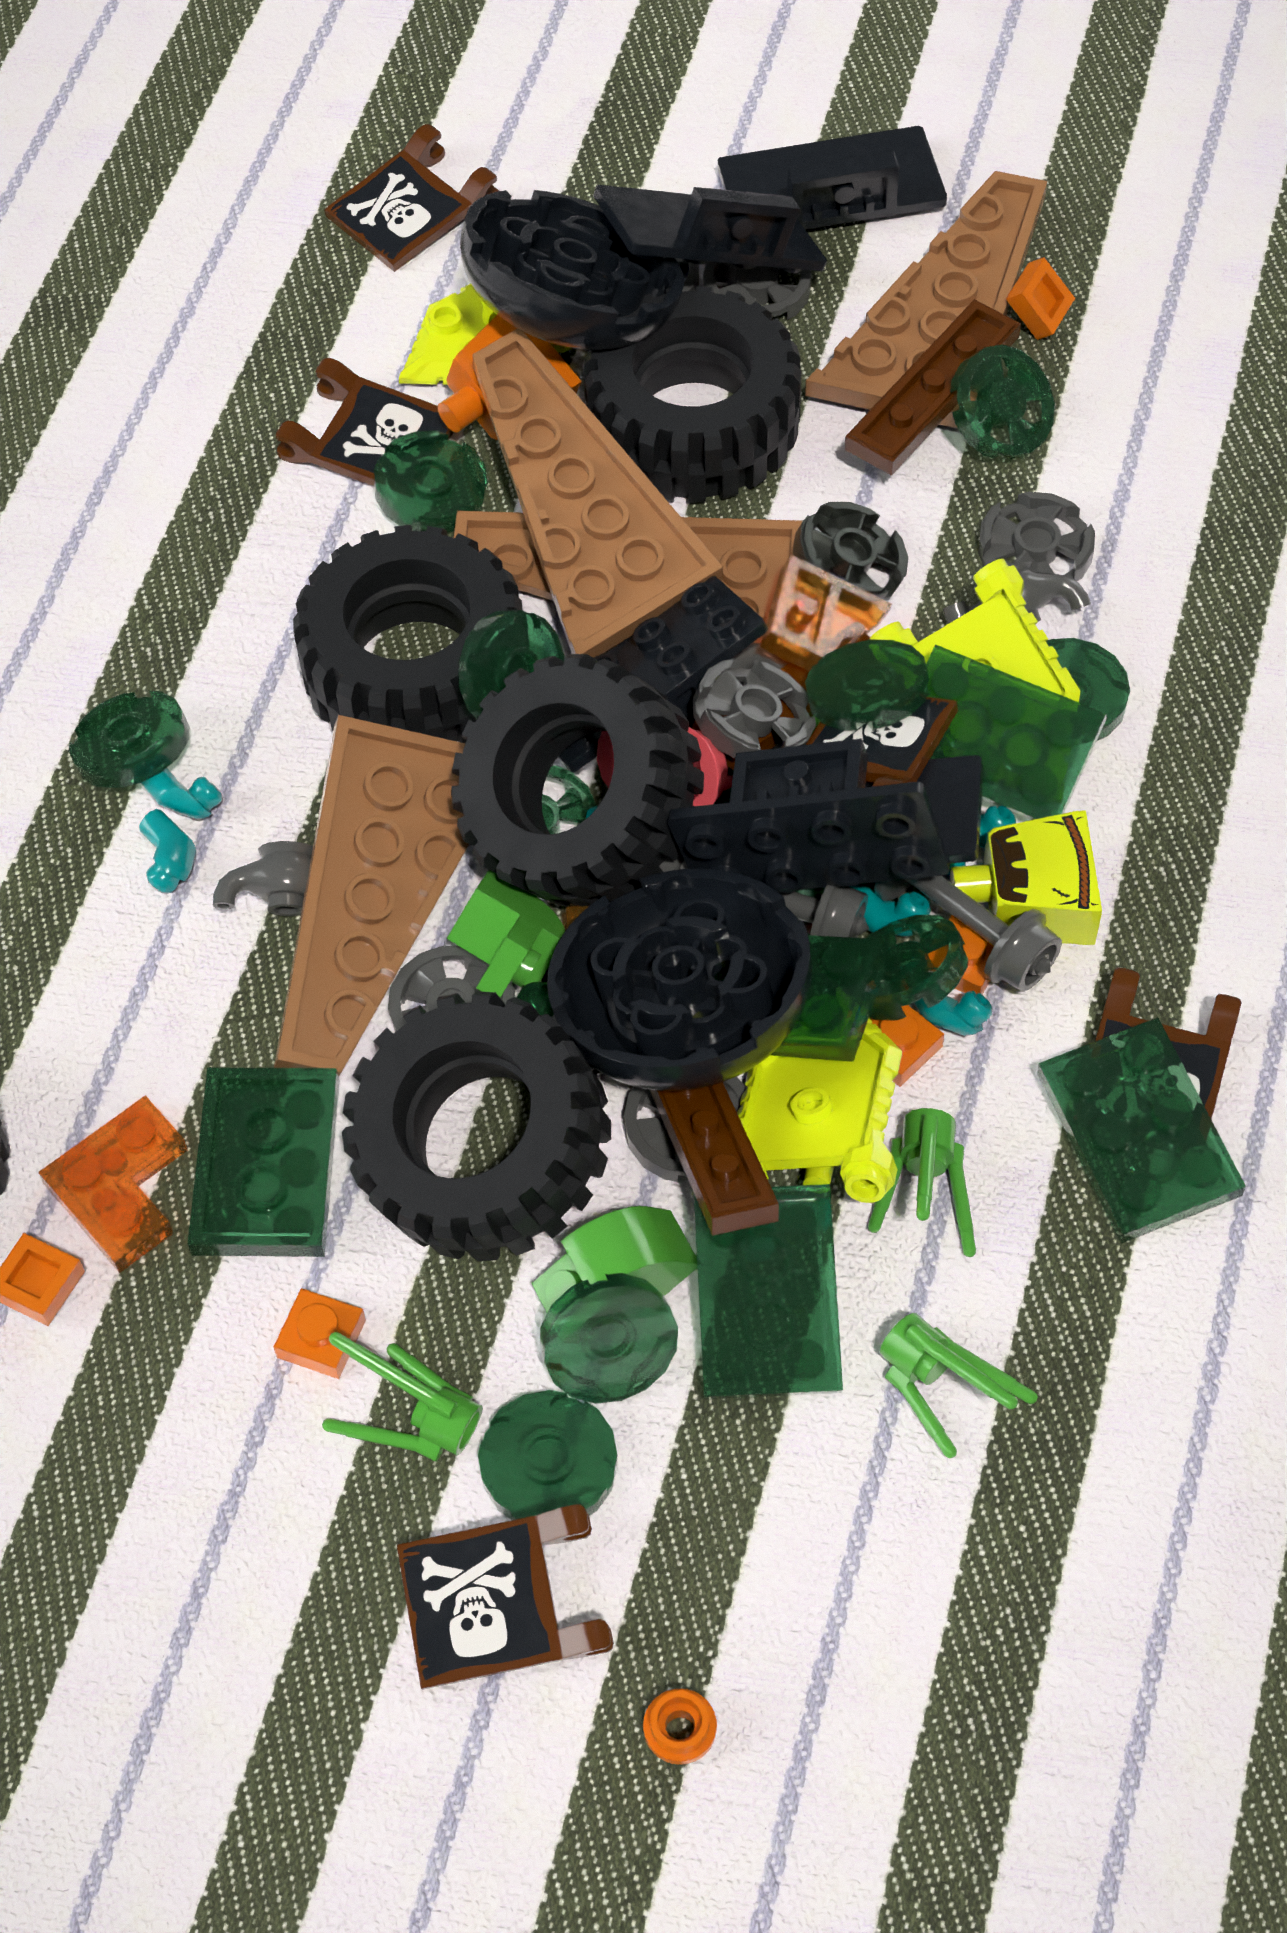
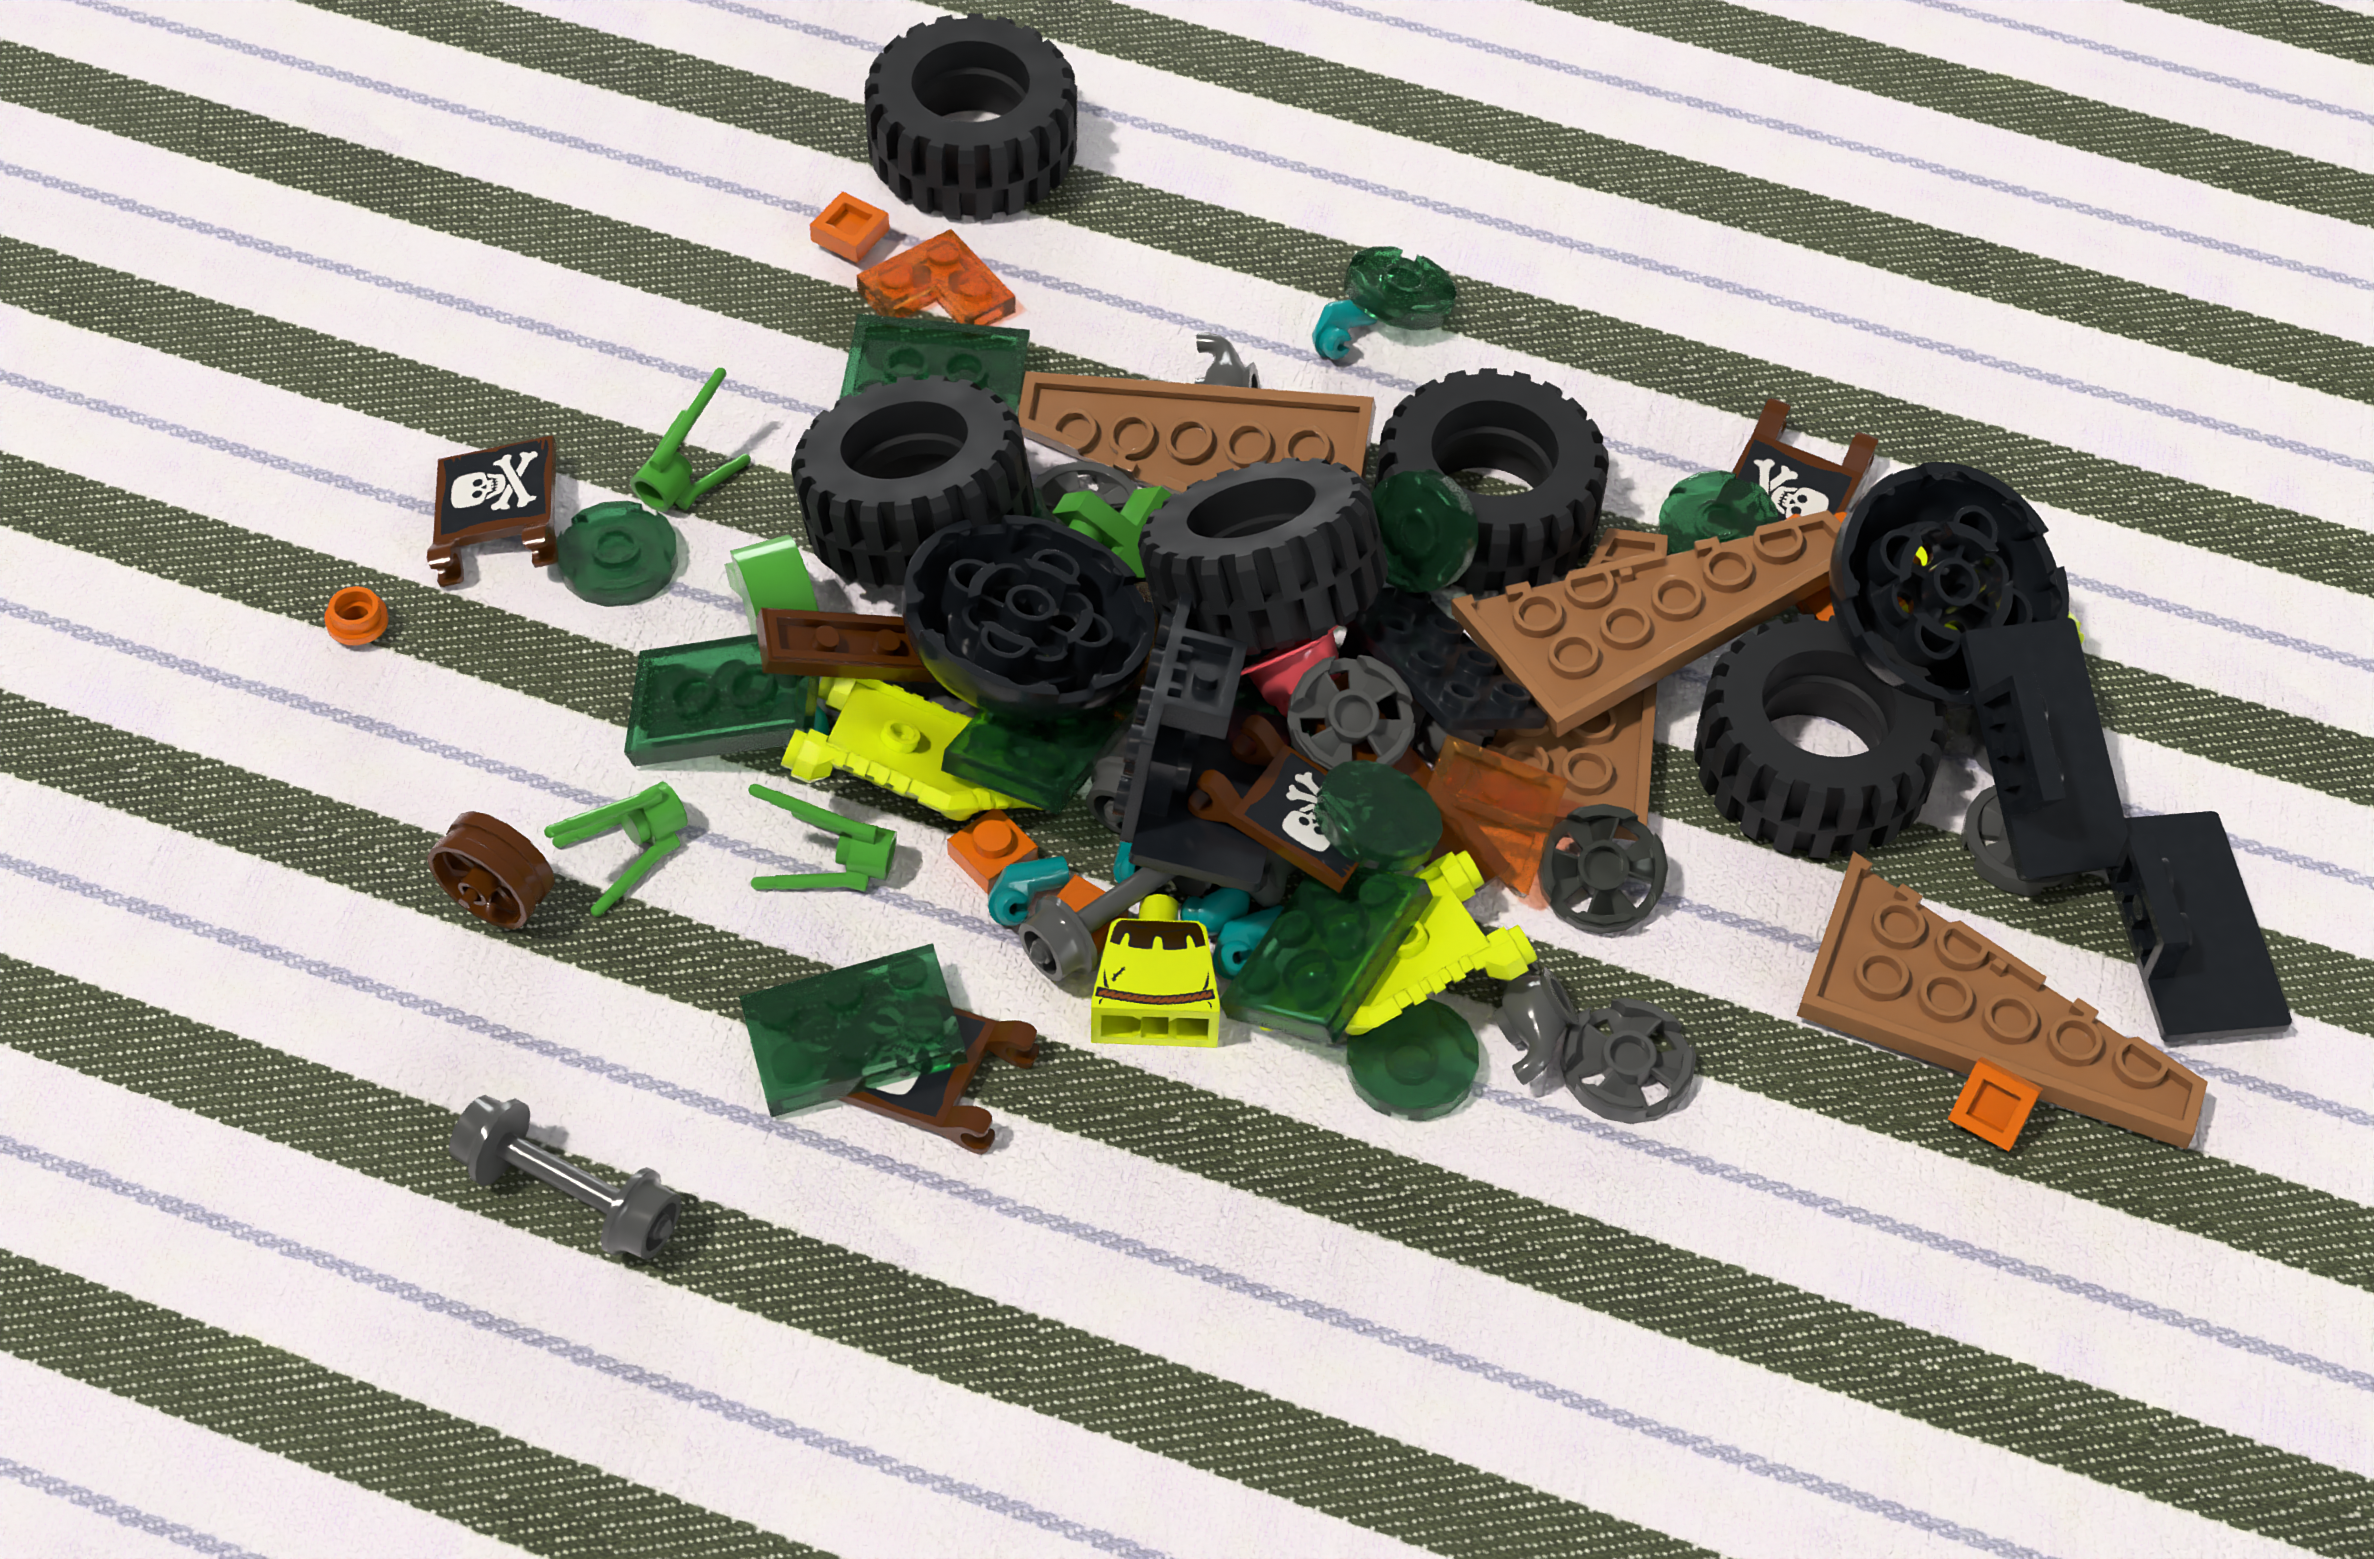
camera: 90 degrees right, 5 degrees down
(173, 851) = (1273, 322): teal arm -> none
(308, 1328) = (767, 409): orange plate -> none
(405, 204) = (2129, 531): flag -> none
(608, 1338) = (699, 574): clear green tile -> none
(910, 971) = (1043, 844): clear green piece -> none
(923, 392) = (1839, 964): reddish brown tile -> none
(1002, 401) = (1813, 1029): clear green piece -> none
(1040, 1478) = (491, 869): none -> reddish brown wheel

